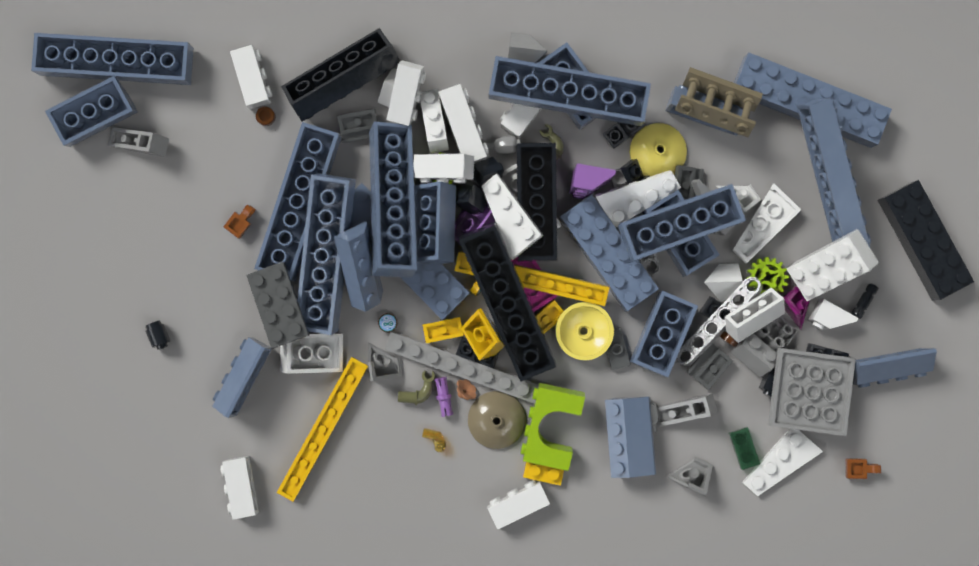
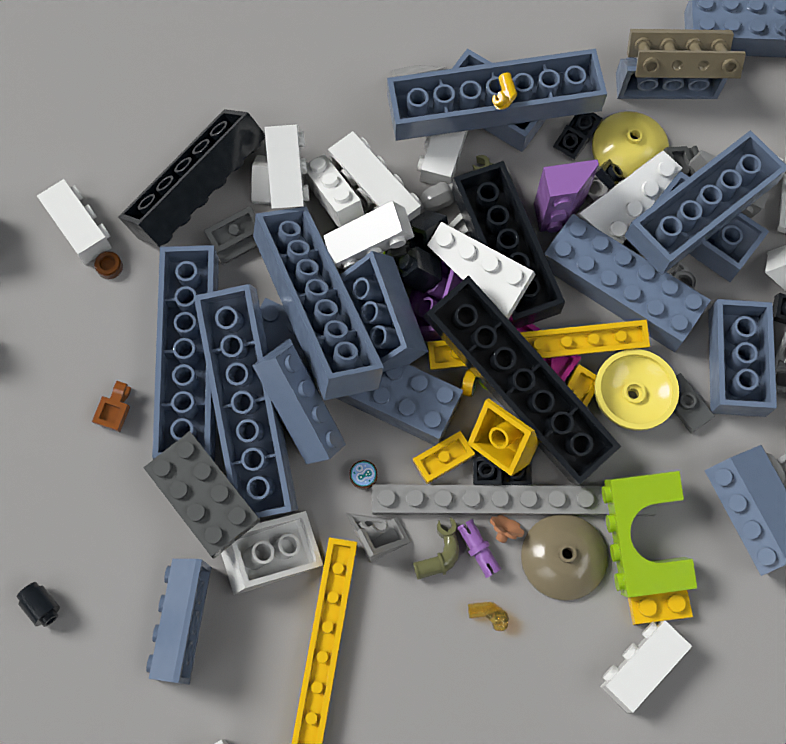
camera: 20 degrees left, 15 degrees down
(572, 100) = (507, 94): none -> yellow arm

